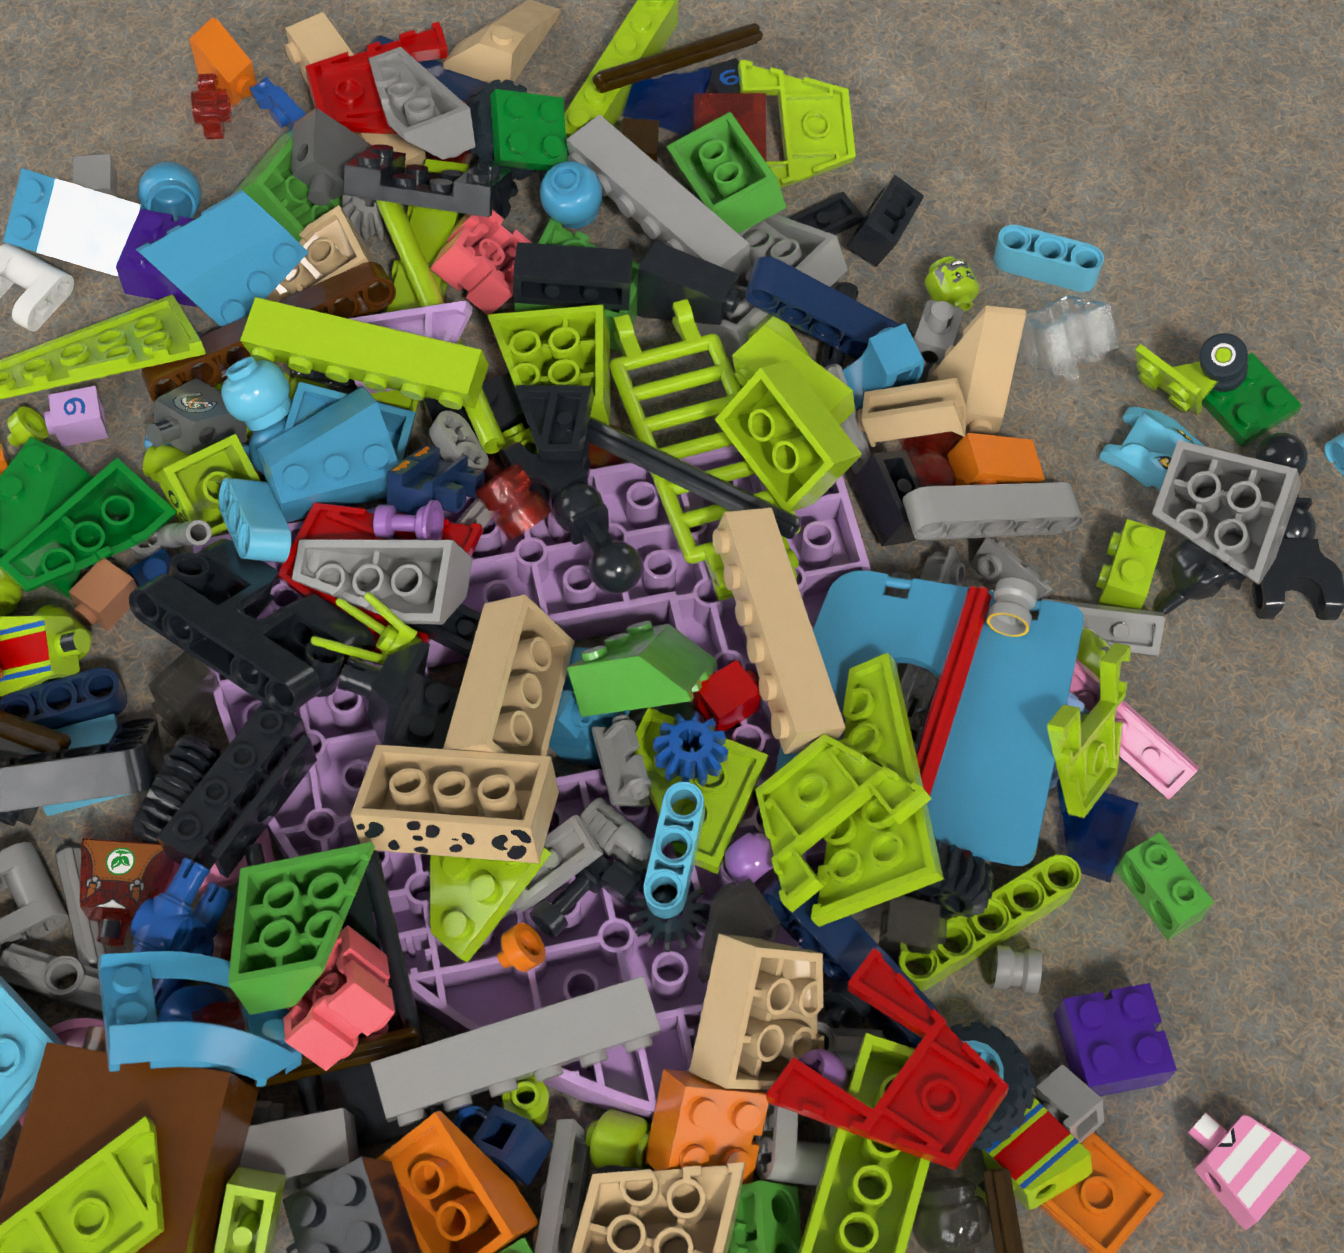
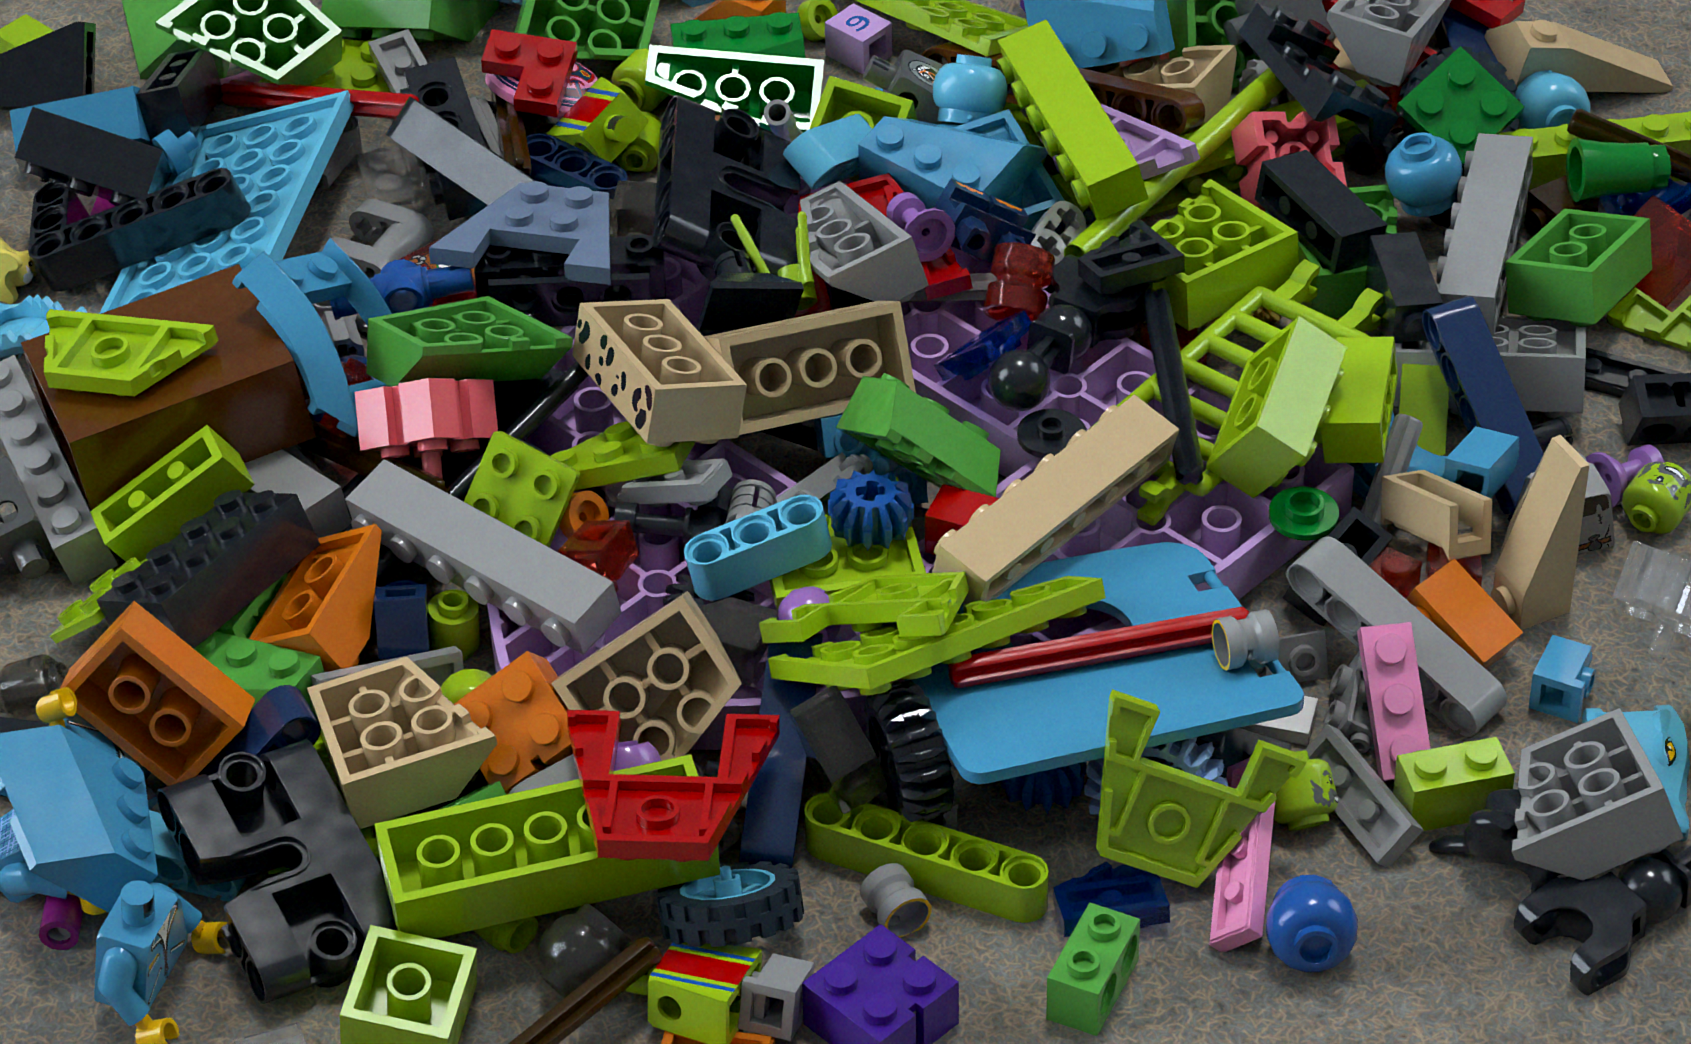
camera: 60 degrees right, 20 degrees down
(192, 769) = (540, 220): none -> sand blue wing
(467, 984) = (522, 487): none -> lime plate
(546, 76) = (1549, 99): none -> medium azure piece
(554, 562) = (984, 348): none -> clear blue wing
(566, 949) = (603, 547): none -> clear red brick
(656, 100) = (1615, 168): none -> green plant
(667, 581) = (1047, 431): none -> black piece
(857, 488) = (1303, 513): none -> green piece
(912, 297) = (1616, 474): none -> medium lavender piece
(1050, 551) = (1392, 693): none -> bright pink plate
(1073, 445) = (1562, 679): none -> dark azure brick
(1211, 732) = (1311, 924): none -> blue piece

